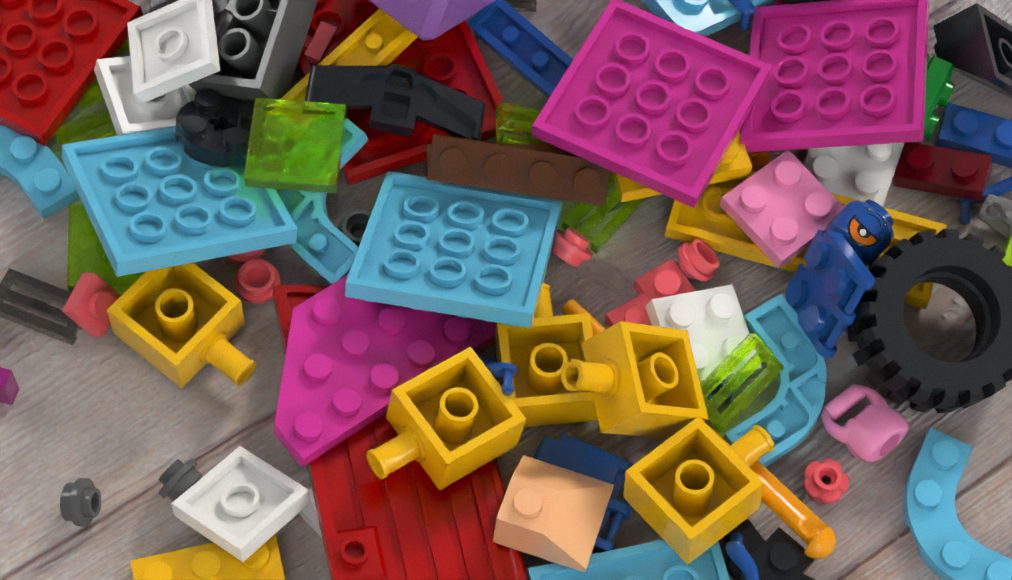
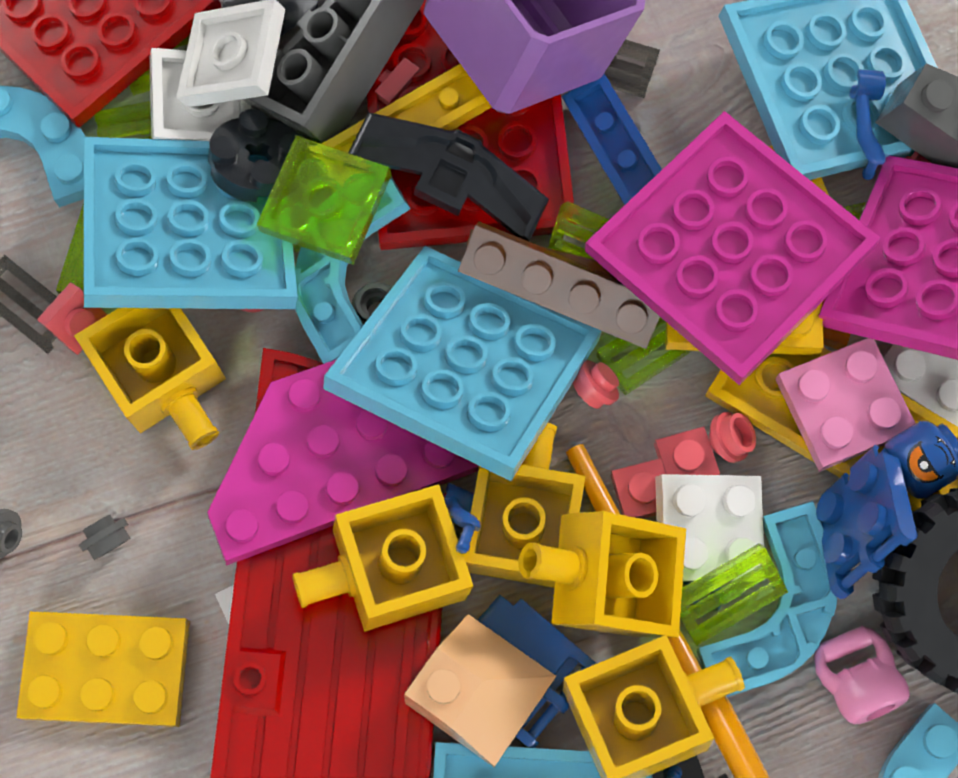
camera: 25 degrees right, 10 degrees up
(241, 503) = (156, 584): white plate -> none
(256, 281) = (252, 333): coral plate -> none
(822, 492) = (782, 736): coral plate -> none

